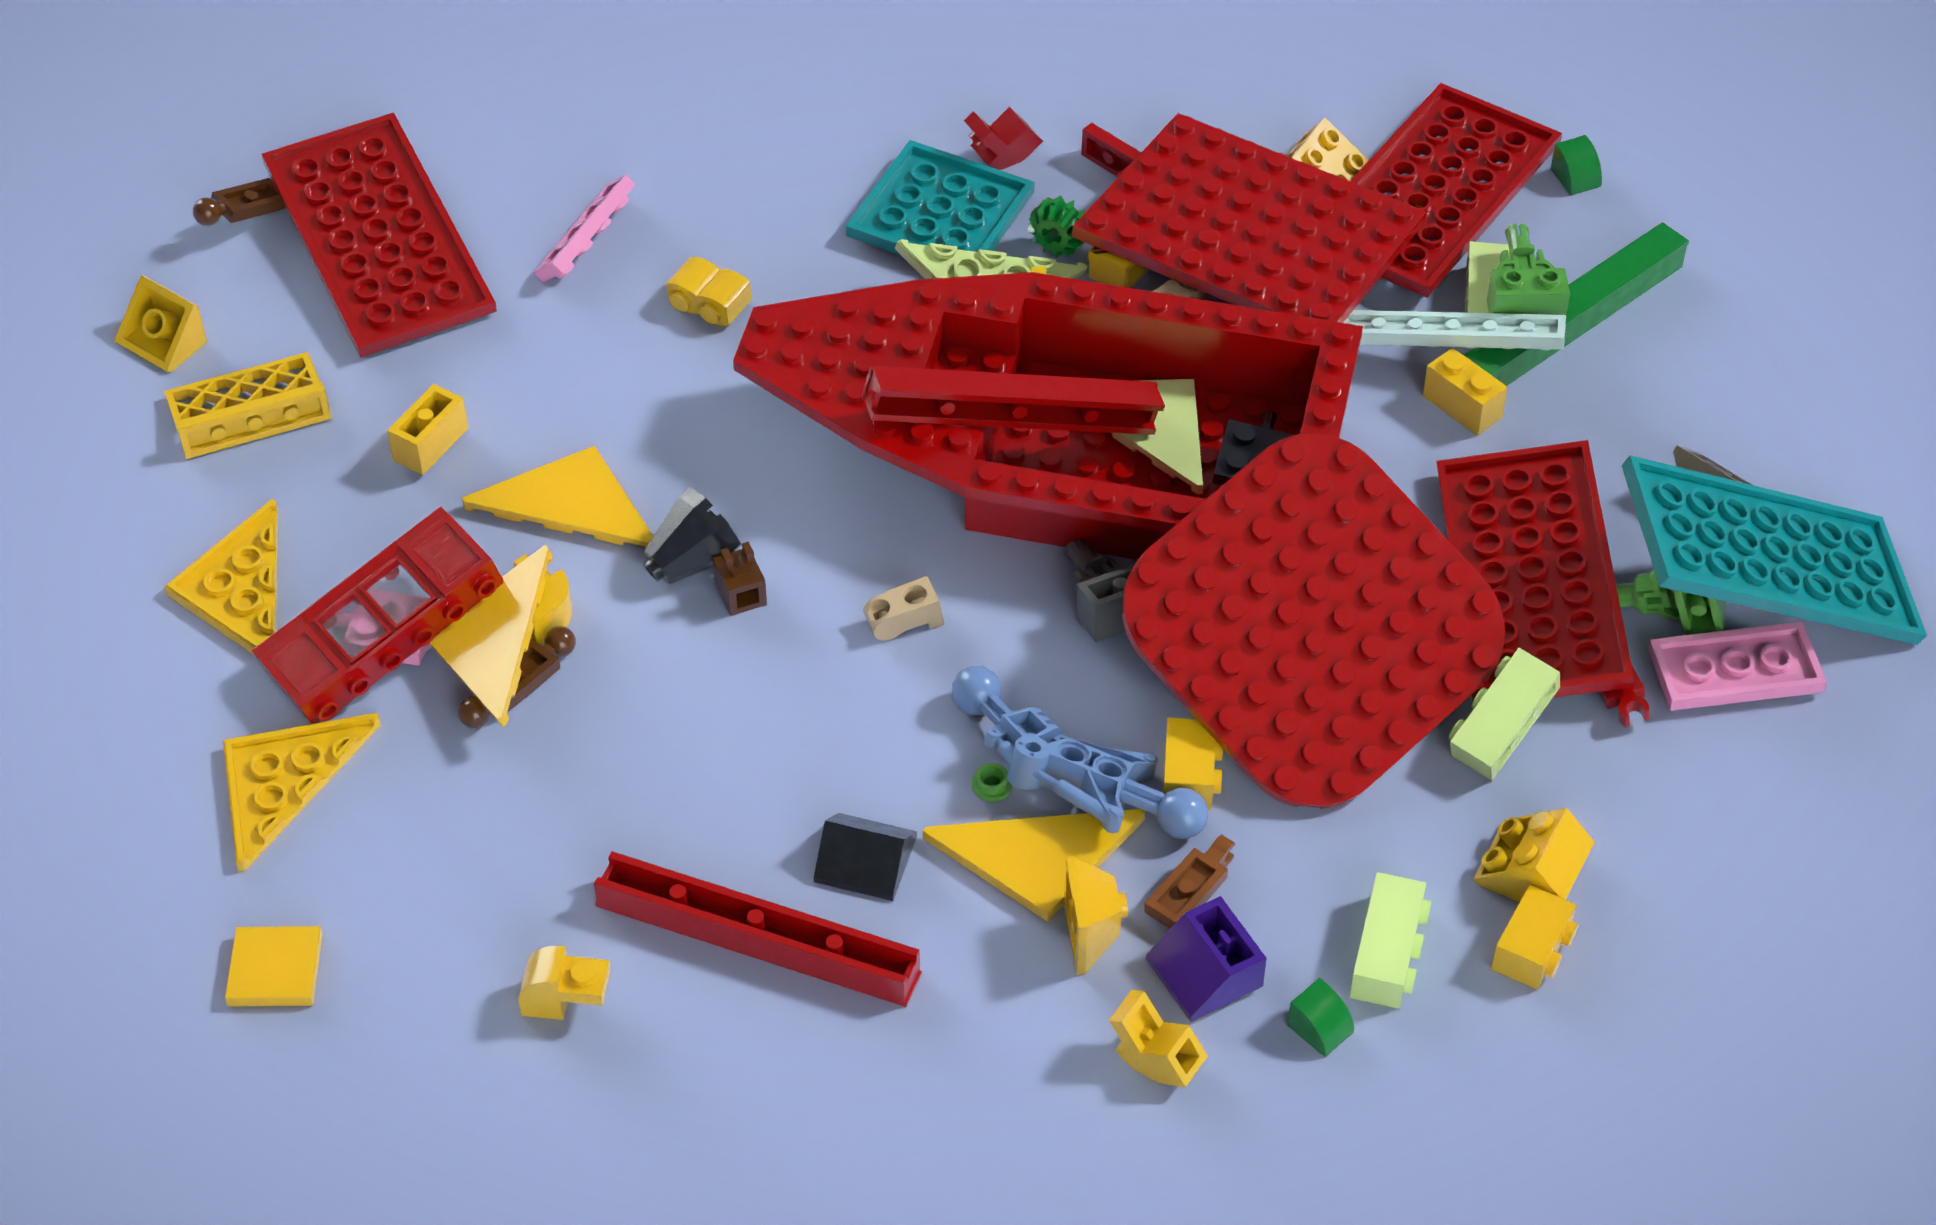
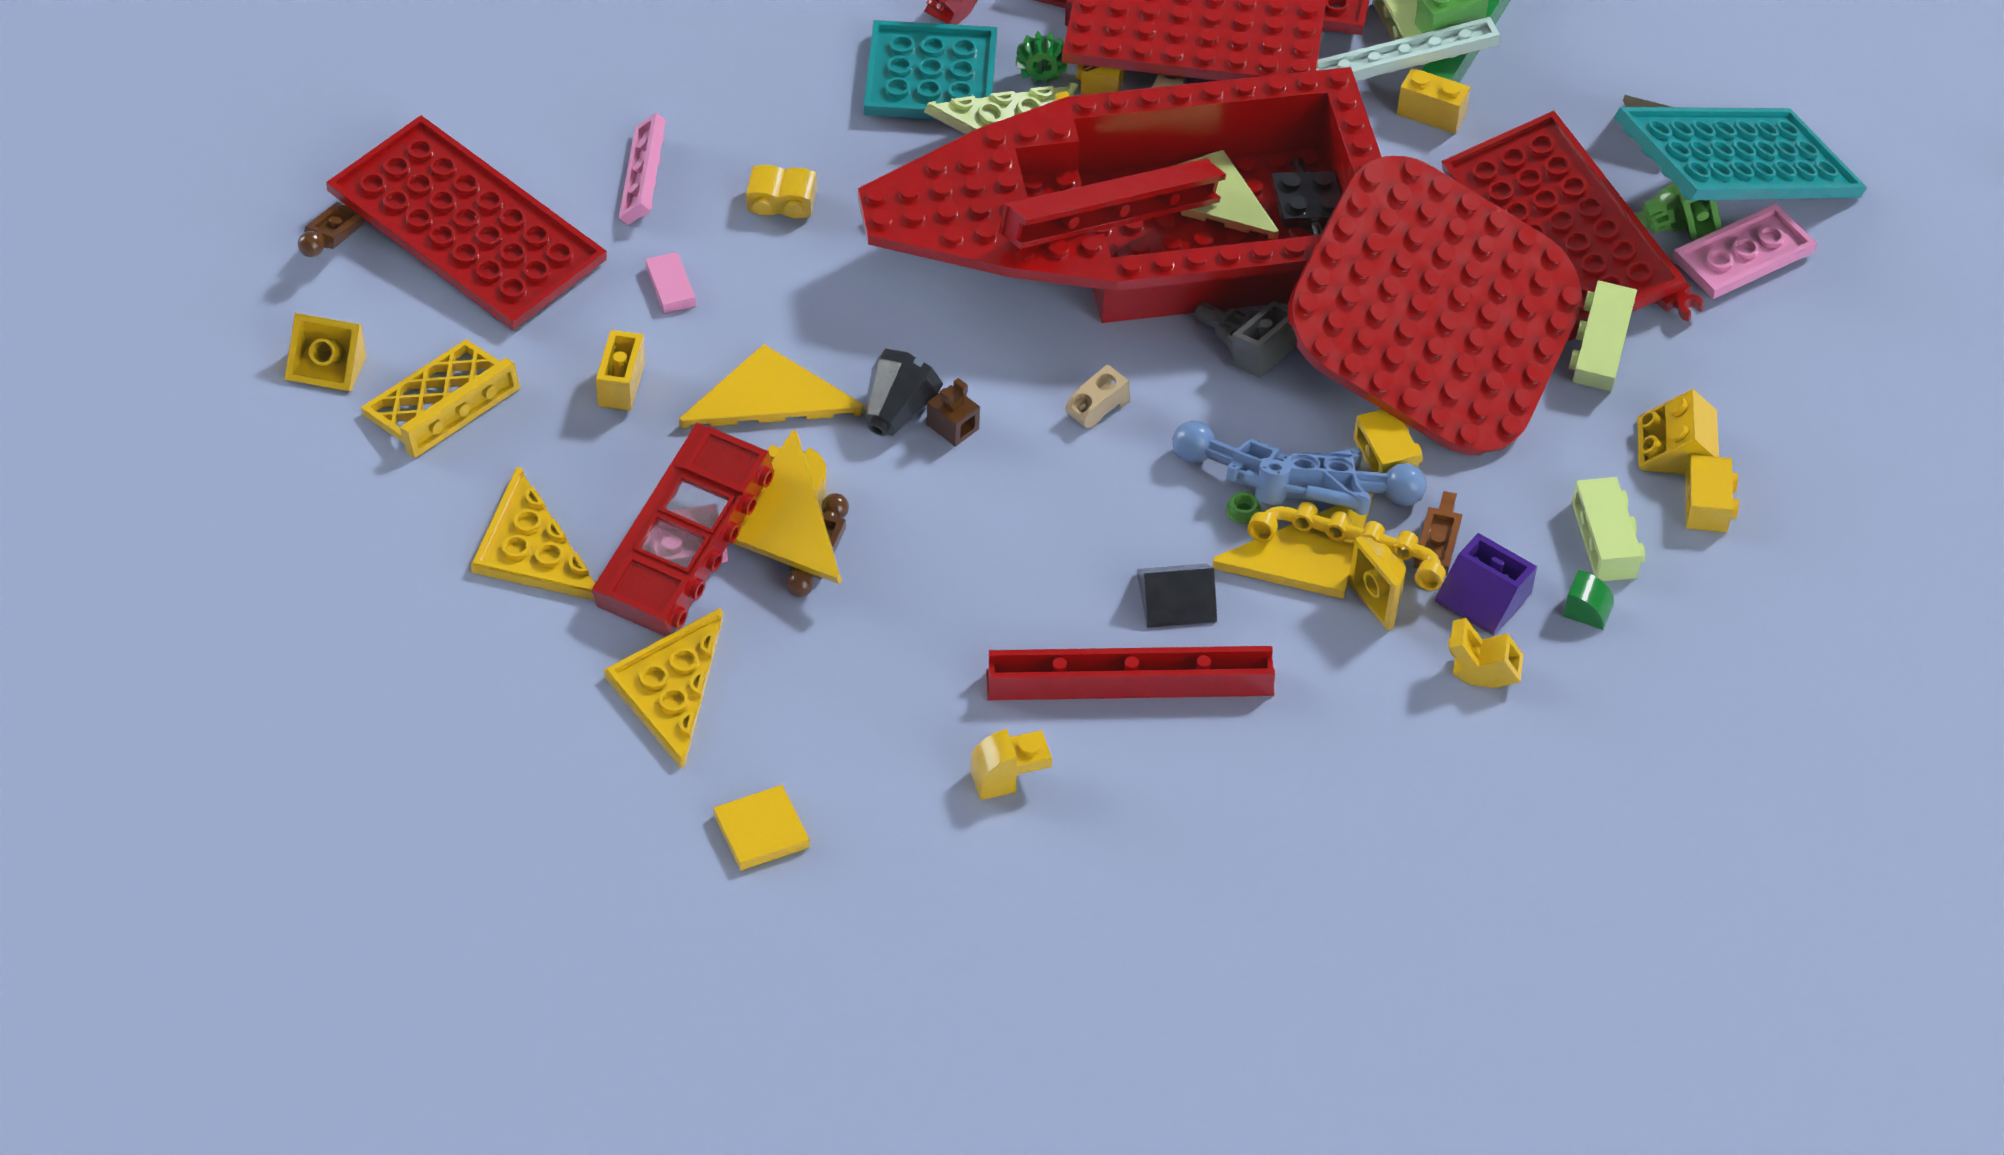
camera: 25 degrees left, 0 degrees up
(544, 354) = (670, 282): none -> bright pink tile
(1146, 924) = (1428, 575): none -> yellow bar

